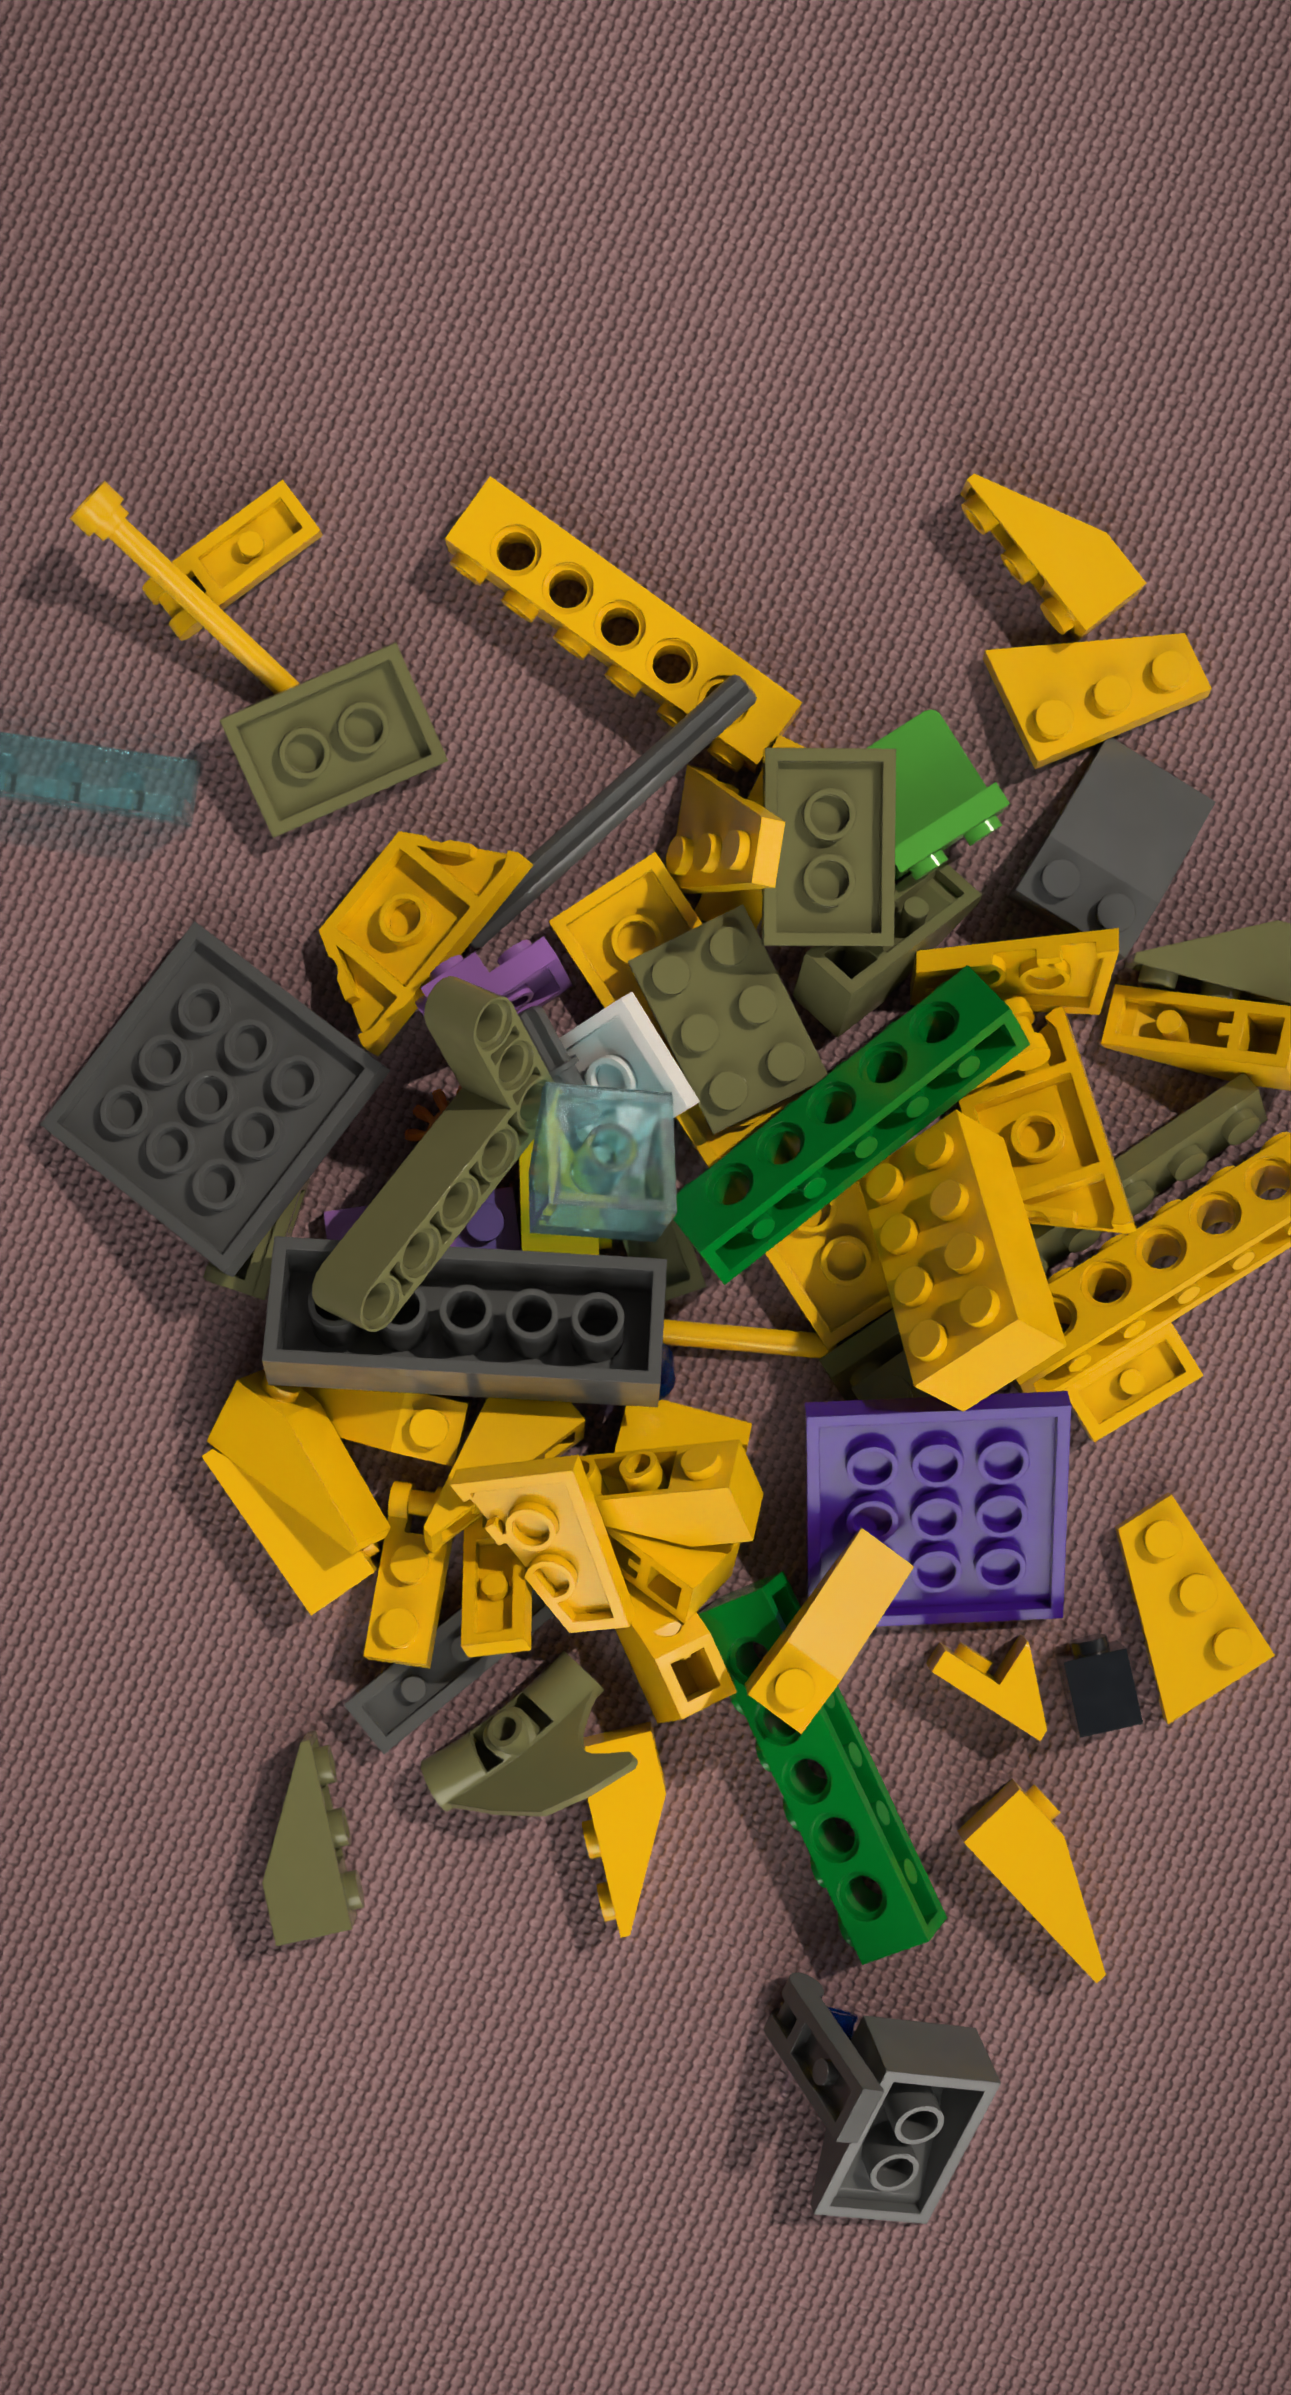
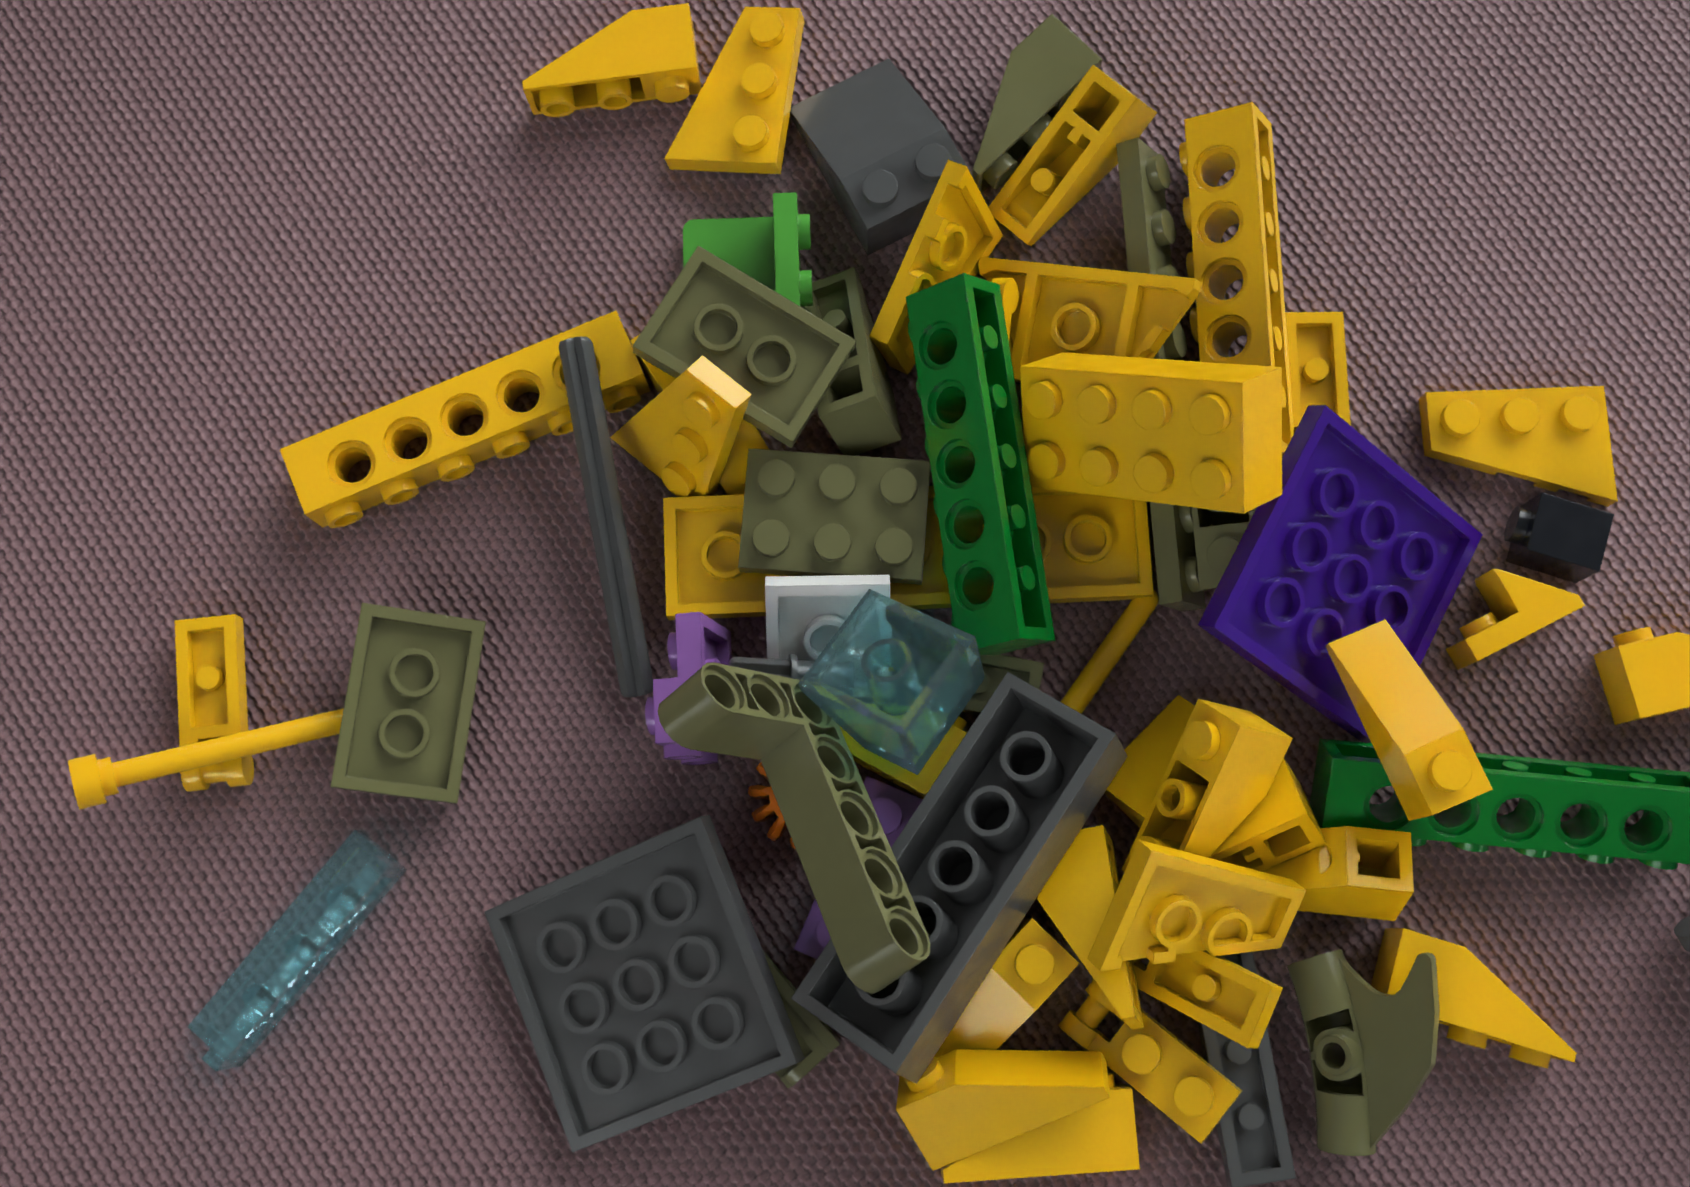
camera: 55 degrees left, 10 degrees down
(407, 918) = (593, 728): yellow wing -> none

